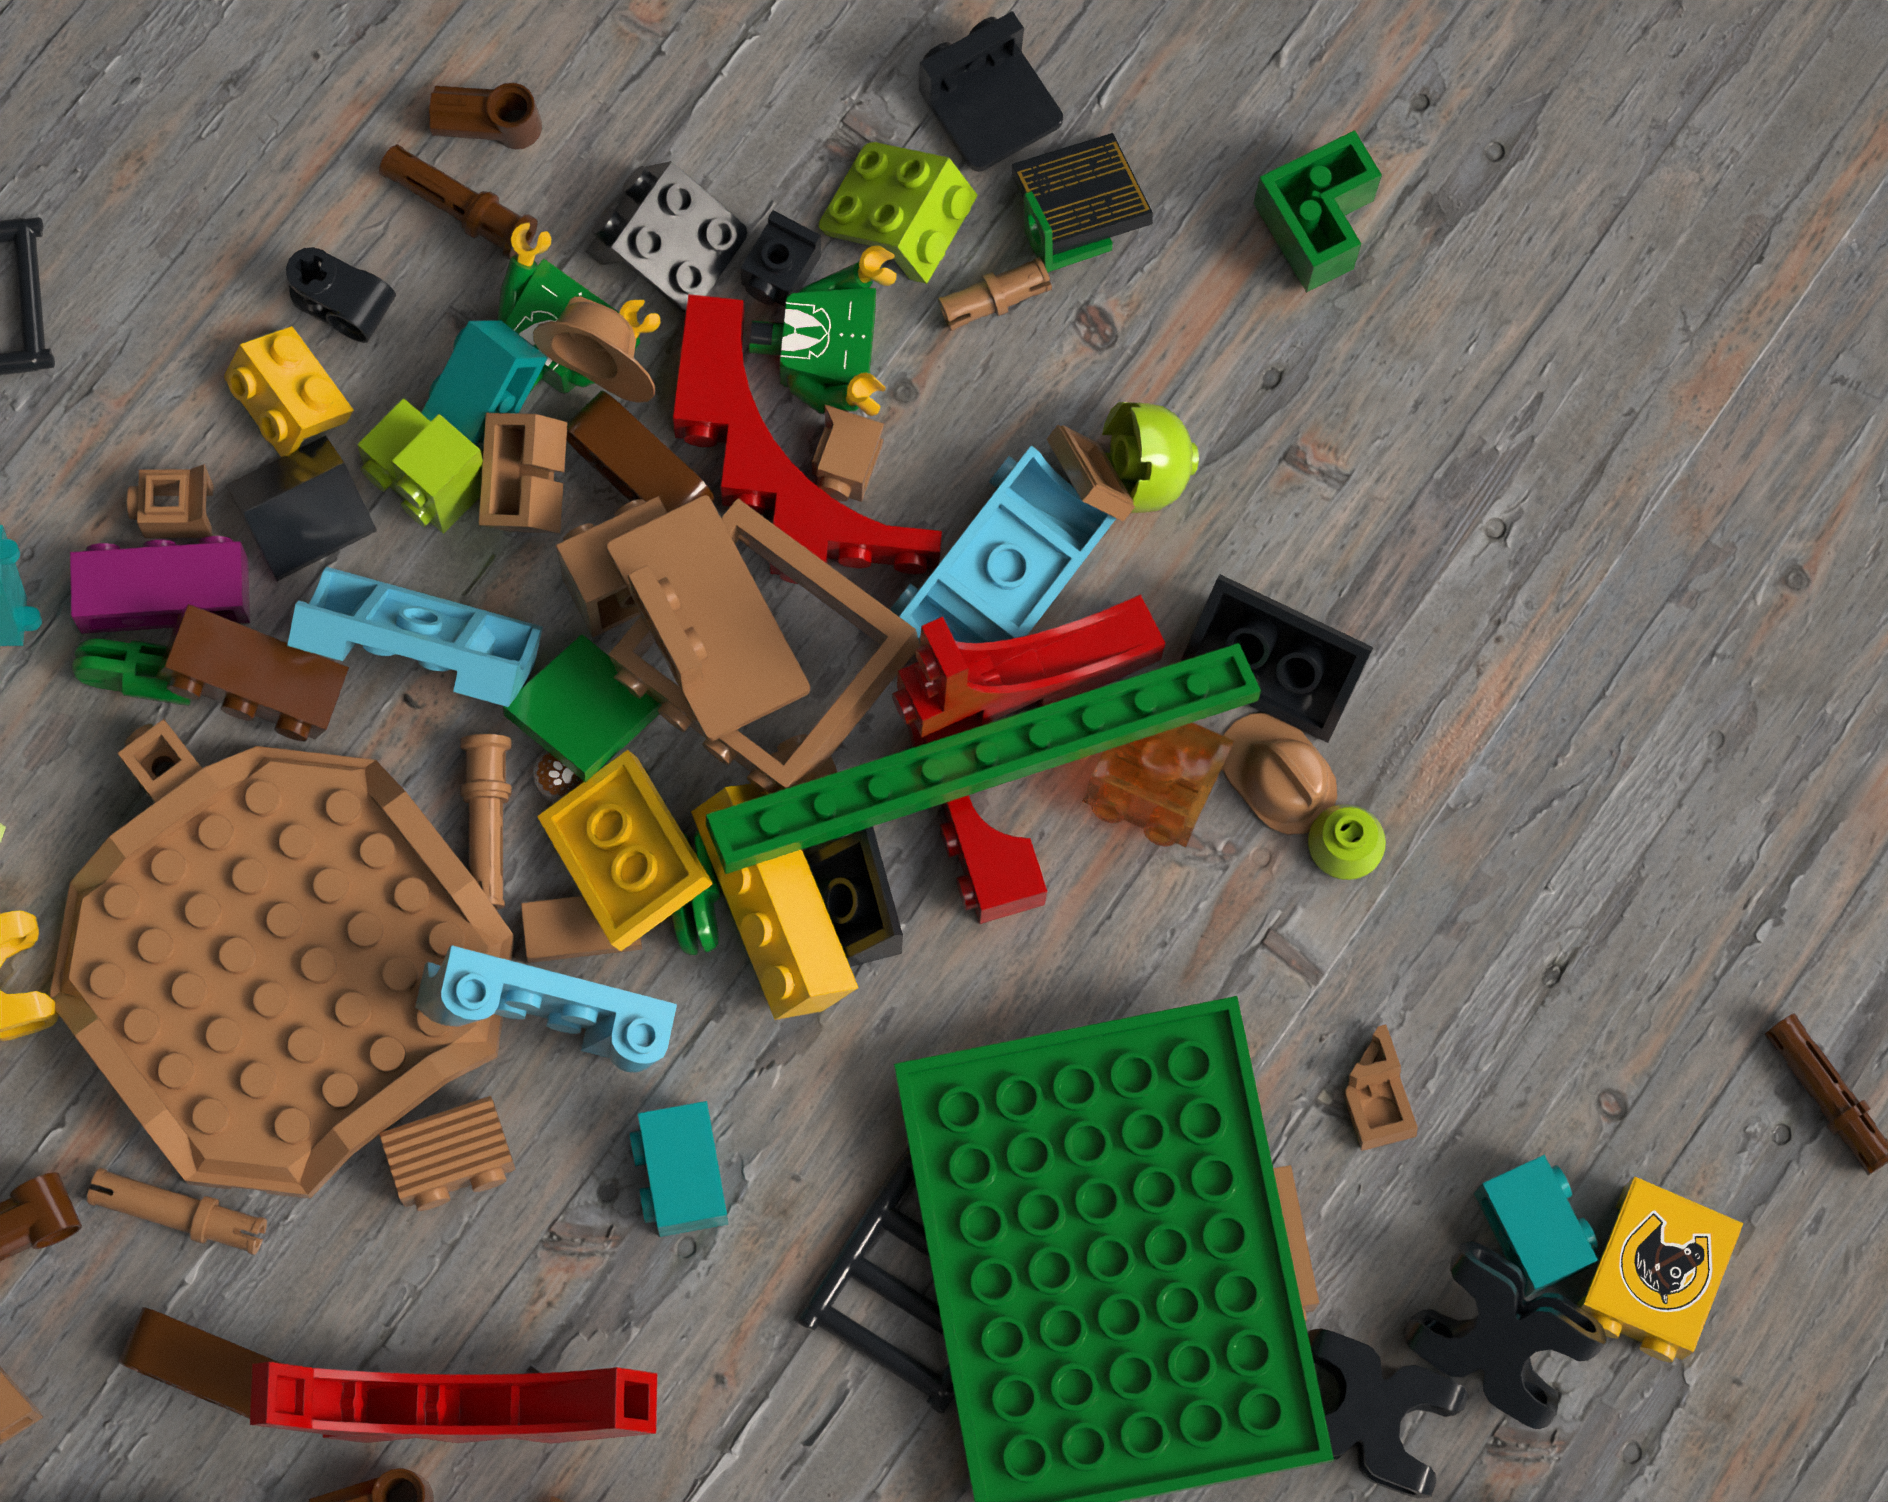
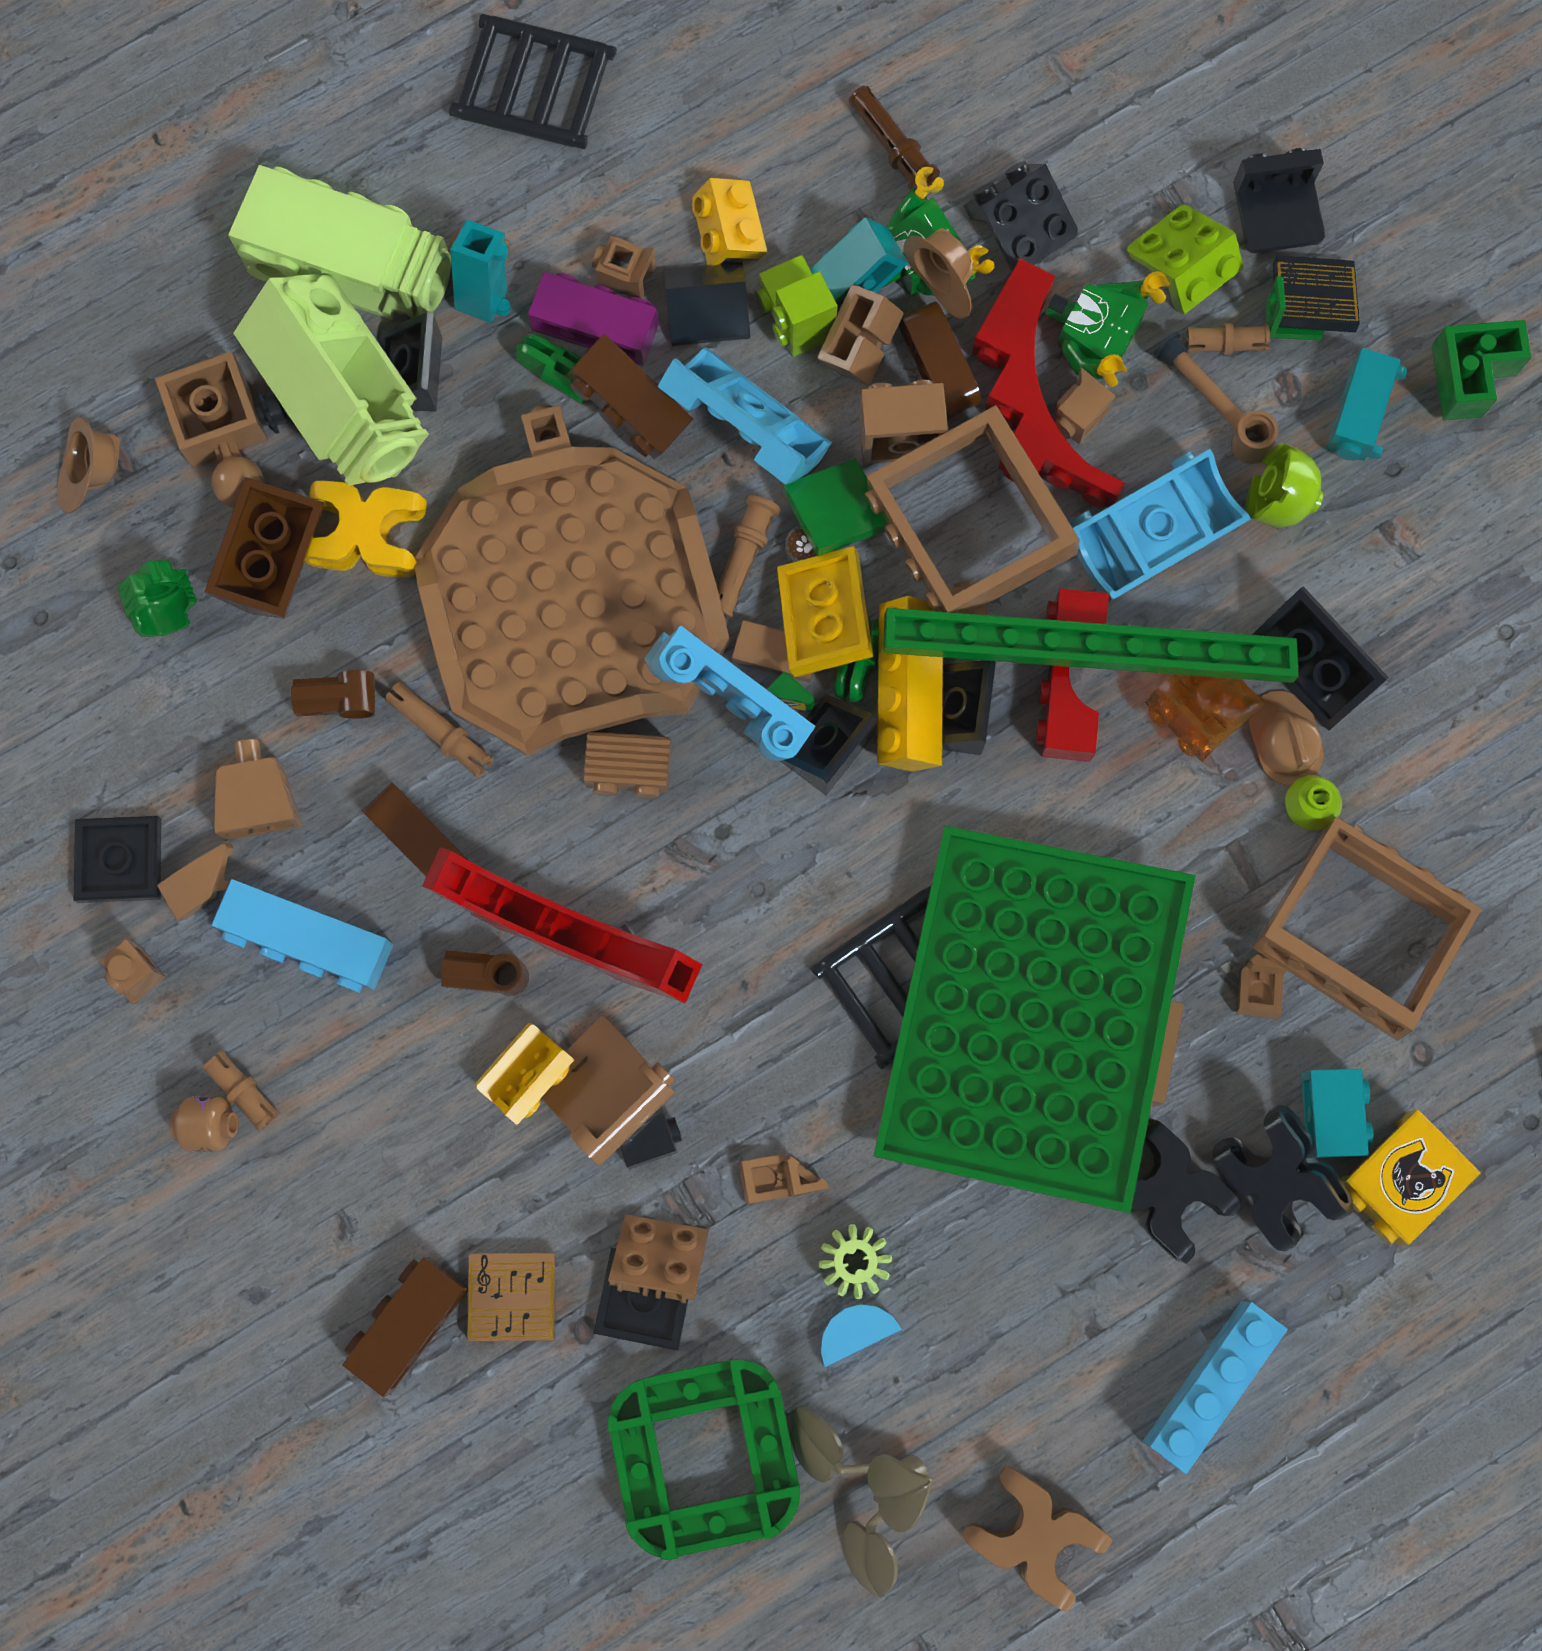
camera: 30 degrees right, 5 degrees up
(346, 297) = (792, 174): black piece -> none
(480, 114) = (932, 86): reddish brown piece -> none
(626, 972) = (792, 693): none -> green slope
(681, 1169) = (775, 836): teal brick -> none
(708, 618) = (942, 477): medium nougat bracket -> none
(708, 1015) = (834, 742): none -> black slope
(790, 242) = (1105, 256): black brick -> none
(936, 338) = (1259, 422): none -> medium nougat piece
(1006, 675) = (1129, 596): red arch -> none
(1091, 472) = (1243, 483): medium nougat tile -> none
(1201, 313) = (1364, 405): none -> teal brick
(1466, 1056) = (1337, 981): none -> medium nougat window

